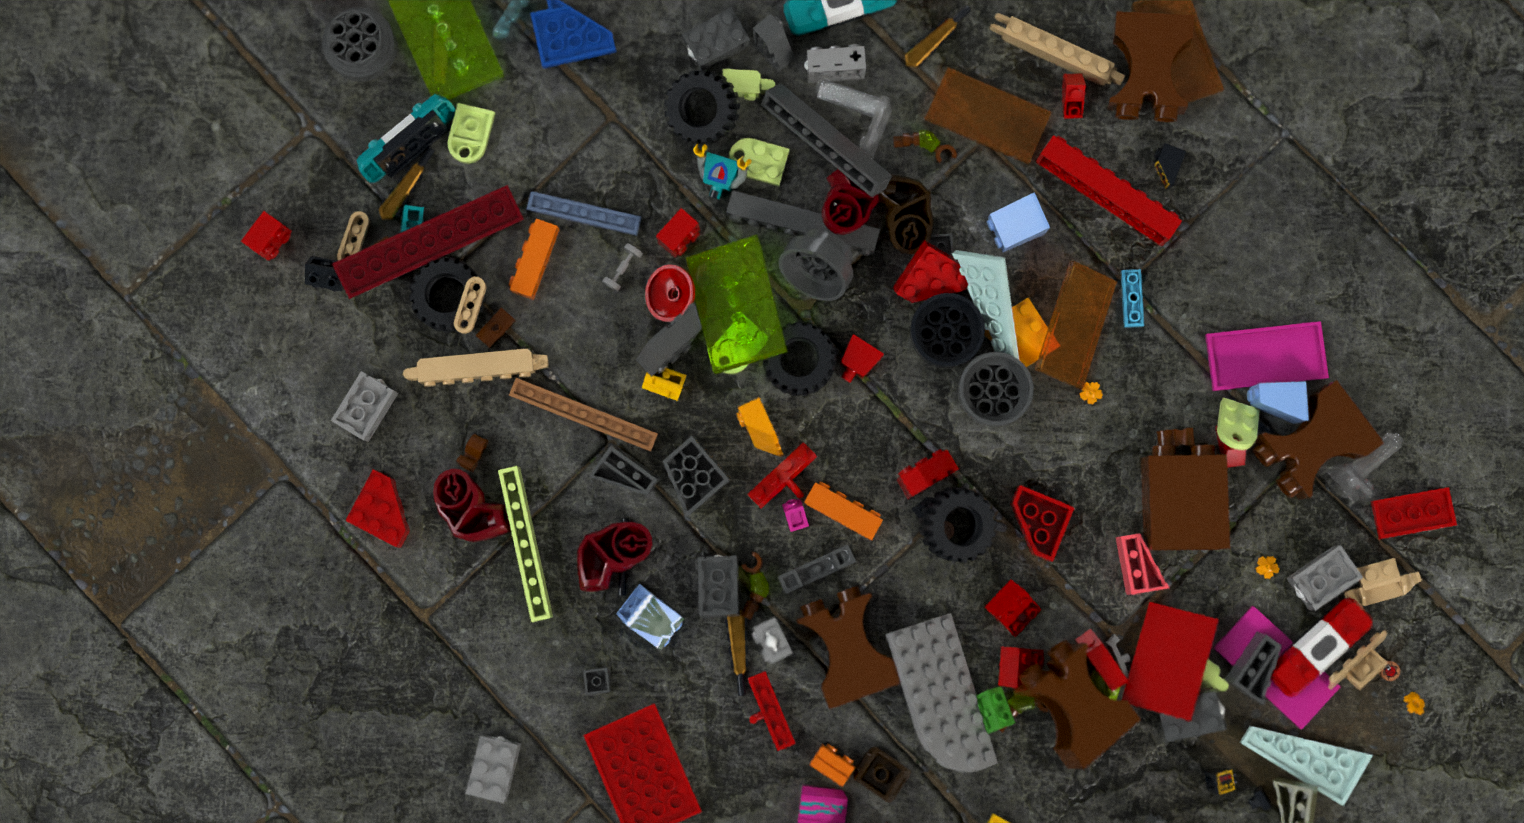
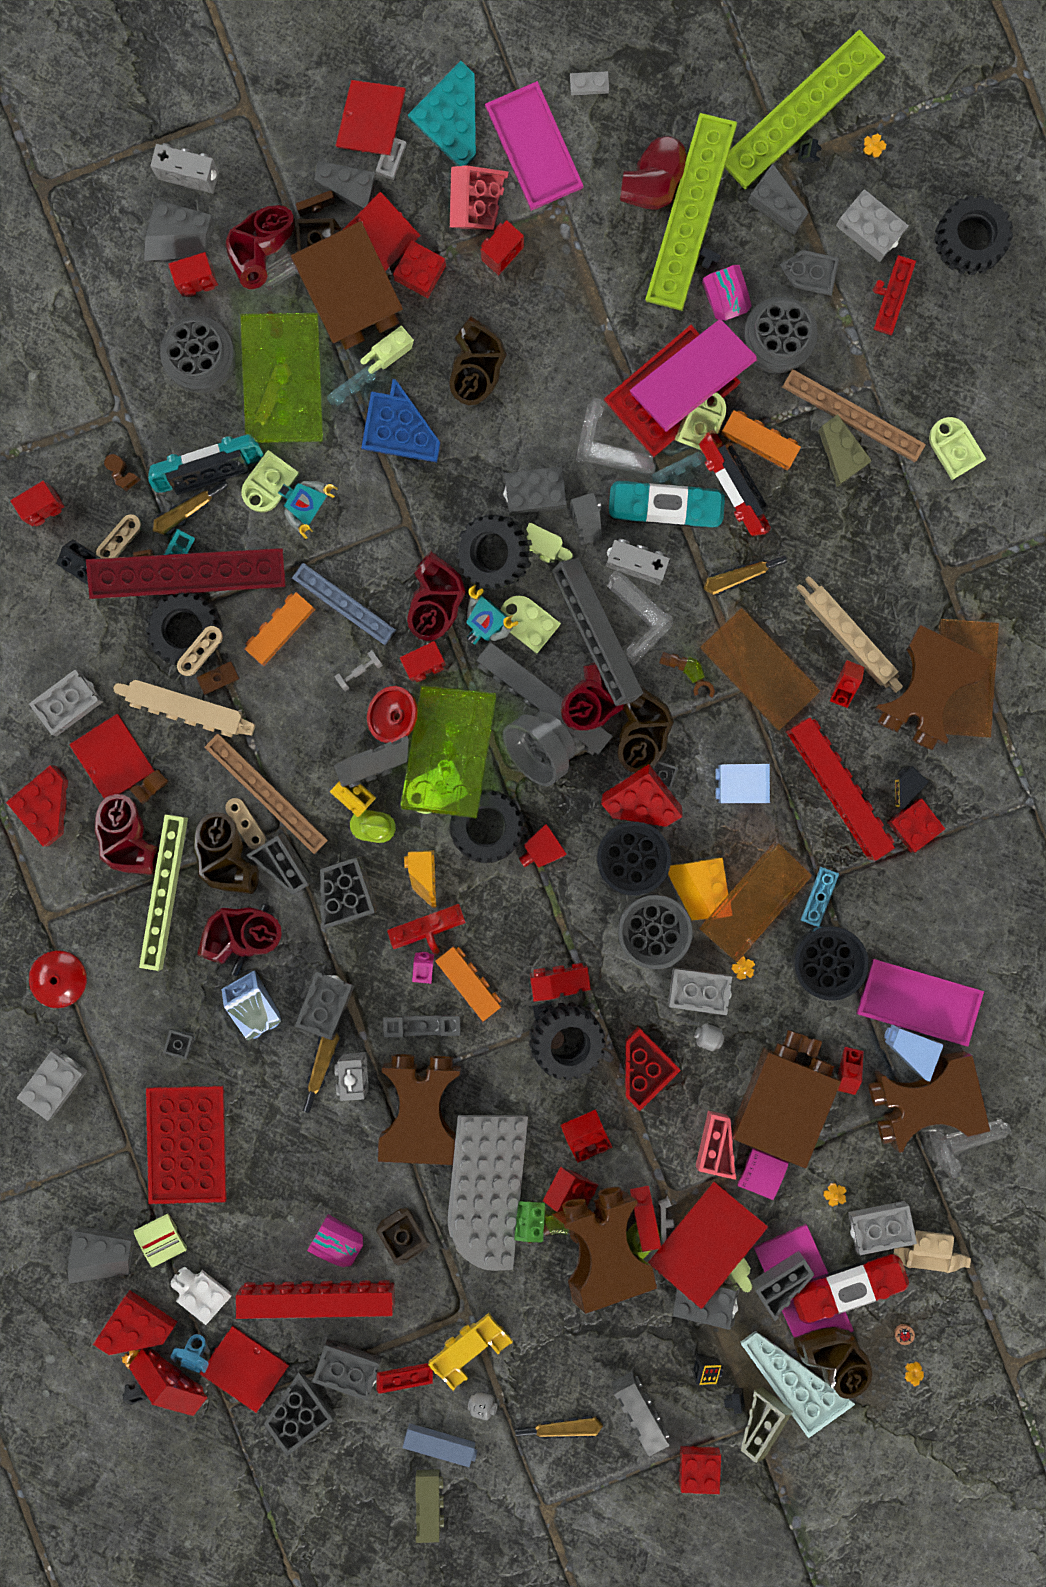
camera: 10 degrees right, 5 degrees up
(325, 175) = (118, 467): none -> reddish brown leg
(426, 441) = (112, 757): none -> red piece
(472, 667) = (69, 974): none -> red dish
(510, 135) = (304, 503): none -> torso
(564, 488) = (219, 855): none -> dark brown piece
(568, 444) = (244, 814): none -> tan plate
(668, 172) = (436, 600): none -> dark red piece
(694, 404) = (373, 826): none -> lime piece
(759, 587) = (362, 1019): piece -> none
(770, 711) = (325, 1137): red plate -> none
(832, 764) = (362, 1209): orange brick -> none
(991, 296) = (687, 845): light aqua wing -> none
(1060, 428) = (700, 991): none -> light grey piece
(1087, 468) = (709, 1037): none -> light grey head
(1191, 196) = (916, 825): none -> red brick
(1191, 341) = (855, 960): none -> black wheel
(1192, 574) = (763, 1173): none -> dark pink slope
(1239, 422) = (865, 1053): yellowish green plate -> none
(1339, 715) = (840, 1358): none -> dark brown piece
(1363, 666) = (883, 1322): tan bracket -> none
(1413, 513) = (990, 1202): red plate -> none

